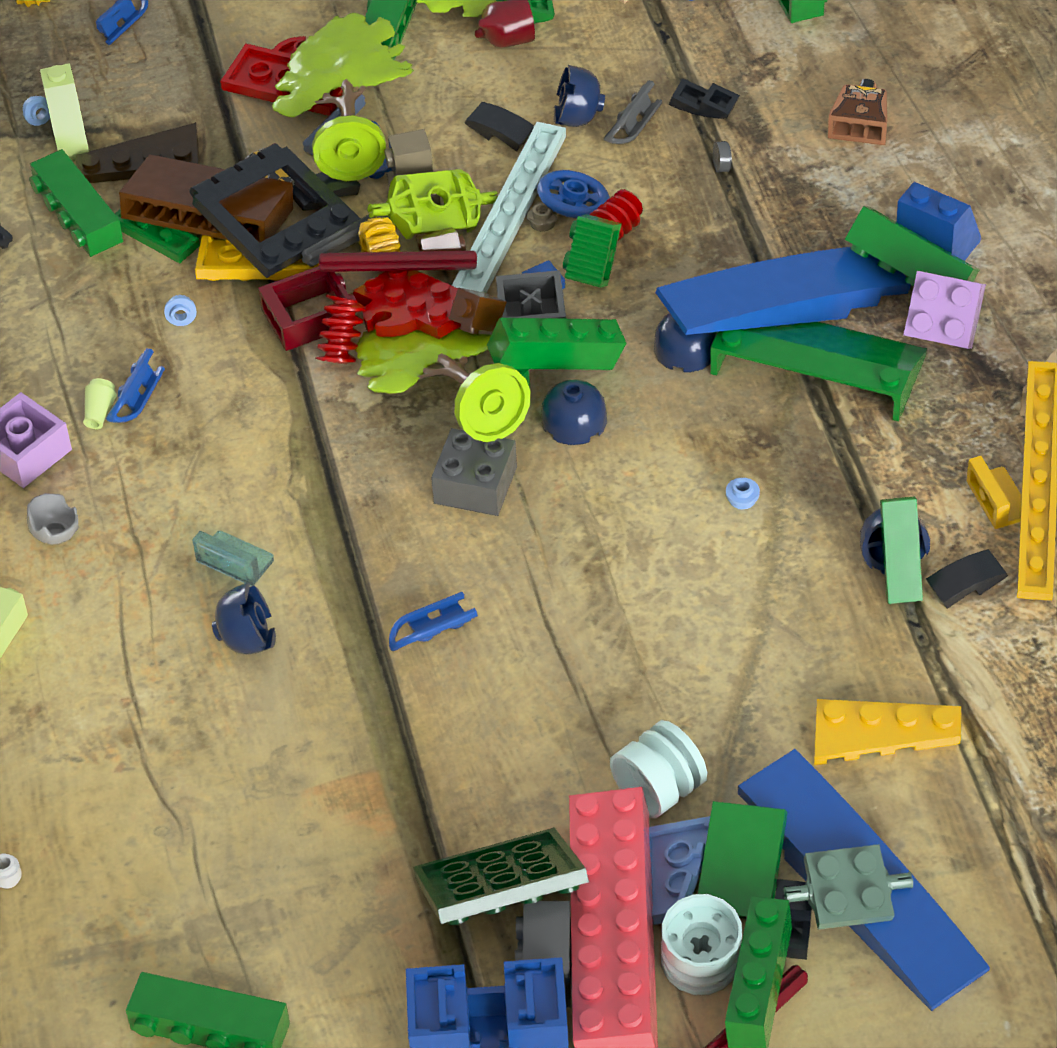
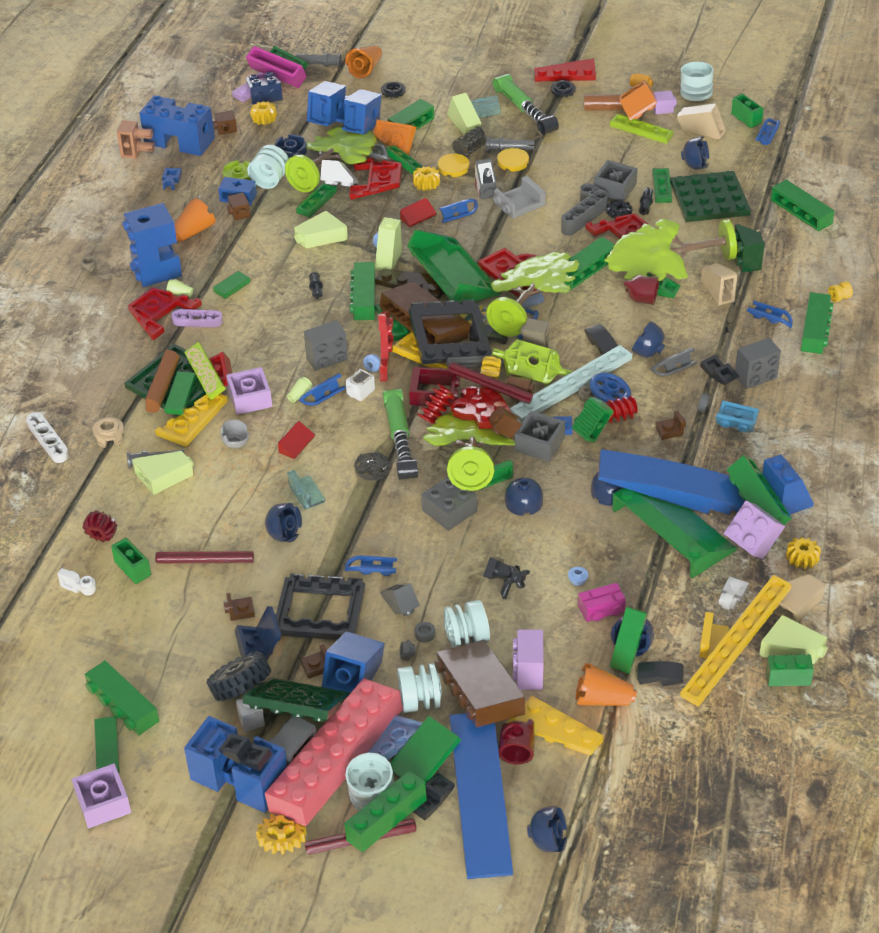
camera: 30 degrees right, 5 degrees down
(50, 796) = (131, 560): none -> green brick
(59, 43) = (417, 212): none -> red slope
(91, 313) = (325, 345): none -> dark grey brick
(155, 486) = (295, 440): none -> red slope
(156, 735) = (204, 557): none -> dark red axle
(176, 245) = (387, 342): none -> wing
(187, 108) = (451, 266): none -> green slope
(189, 352) = (360, 385): none -> white brick
(264, 355) = (400, 432): none -> piece
(277, 785) = (239, 608): none -> reddish brown bracket
(304, 467) = (372, 464): none -> clear smoke wheel
(358, 814) = (259, 638): none -> dark blue bracket
(378, 888) = (238, 676): none -> black wheel
(405, 764) = (318, 585): none -> black hinge
(428, 938) = (249, 717): none -> white brick
(467, 807) = (314, 663): none -> reddish brown bracket
(508, 995) = (243, 752): none -> black slope
(516, 649) = (401, 598): none -> dark grey slope
(527, 783) = (350, 661): none -> blue slope
(557, 343) = (534, 457): green brick -> none
(585, 722) = (407, 650): none -> dark grey plate
(587, 683) = (424, 632): none -> dark grey tile
(630, 537) = (498, 569): none -> black piece
(652, 640) = (471, 623): none -> light aqua wheel
(703, 212) = (671, 427): none -> reddish brown bracket
(747, 716) = (480, 683): none -> brick
(760, 64) = (757, 363): none -> dark grey brick
(783, 647) = (528, 659): none -> lavender brick
(784, 156) = (737, 416): none -> dark azure bracket
(810, 516) = (601, 602): none -> dark pink brick
(848, 887) = (464, 792): sand green plate -> none
(857, 774) = (517, 742): none -> dark red piece
(859, 114) = (796, 411): torso -> none
(909, 639) = (603, 689): none -> orange cone
(973, 415) = (732, 593): none -> white plate
(996, 880) = (547, 829): none -> dark blue cylinder
(1025, 313) = (803, 553): none -> yellow gear

